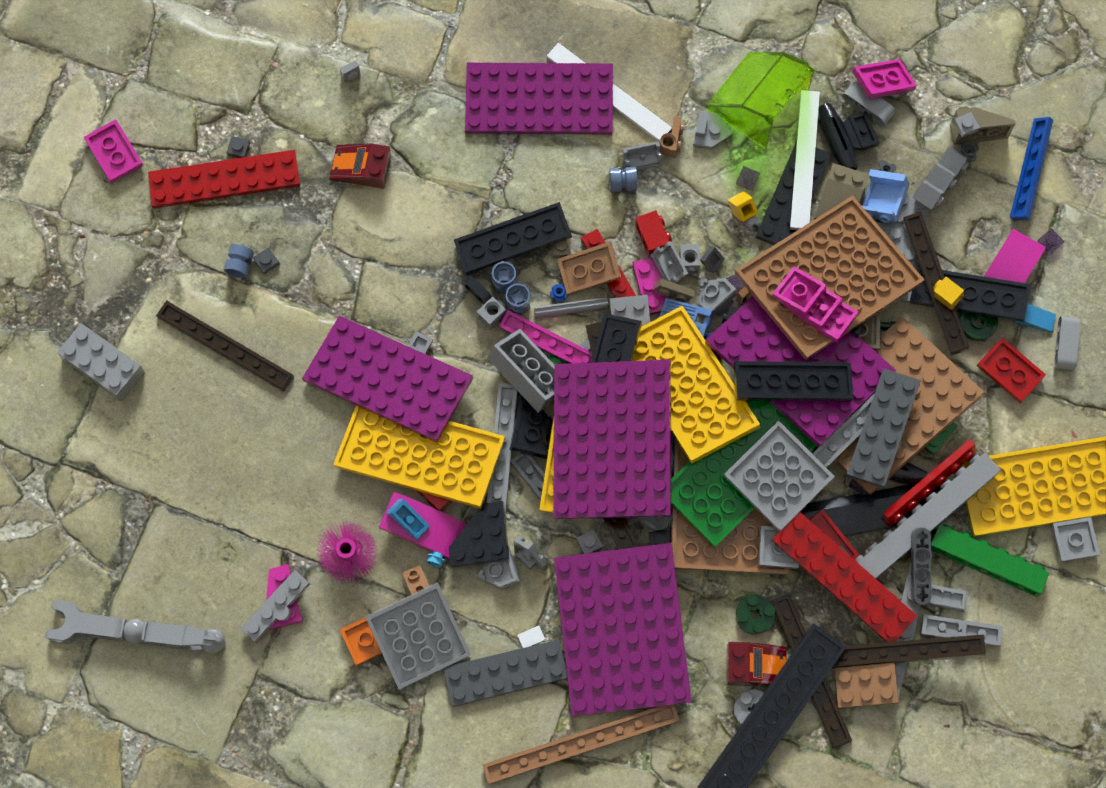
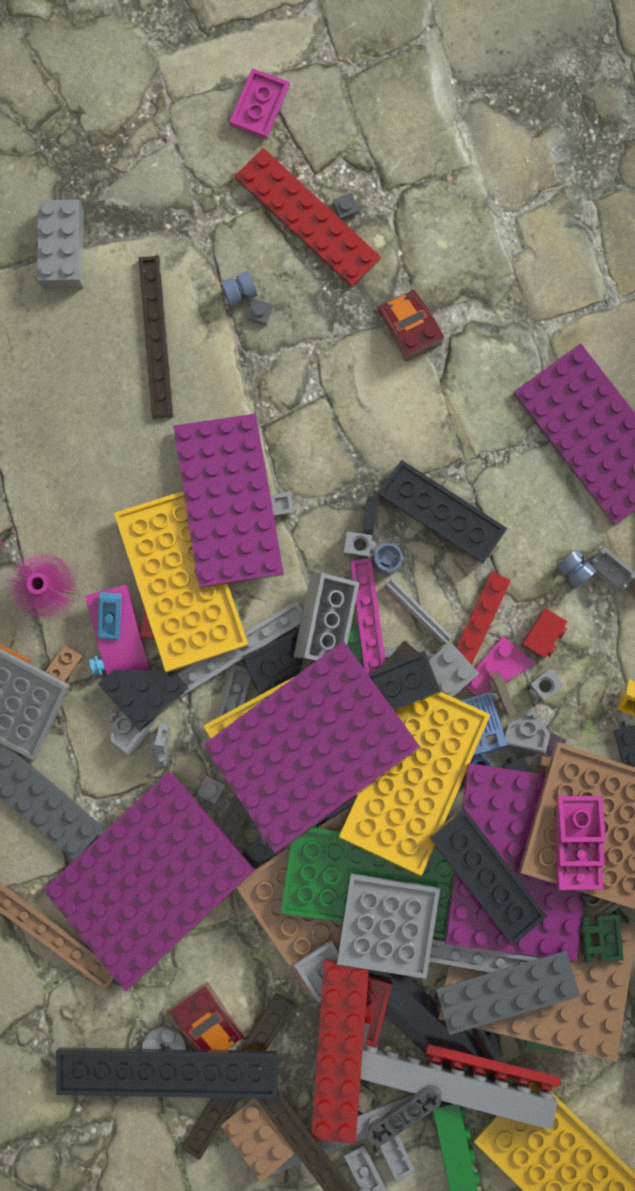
camera: 55 degrees right, 10 degrees up
(350, 71) = (491, 247): light grey plate -> none
(505, 273) = (399, 531): sand blue wheel -> none
(531, 637) = (90, 800): white sticker -> none
(558, 297) = (418, 591): blue plate -> none
(589, 268) = (465, 601): medium nougat plate -> none
(669, 263) = (524, 671): light grey hinge -> none
(712, 259) = (560, 706): dark grey plate -> none
(753, 603) = (244, 997): dark green plate -> none
(895, 337) = (608, 935): none -> dark green plate

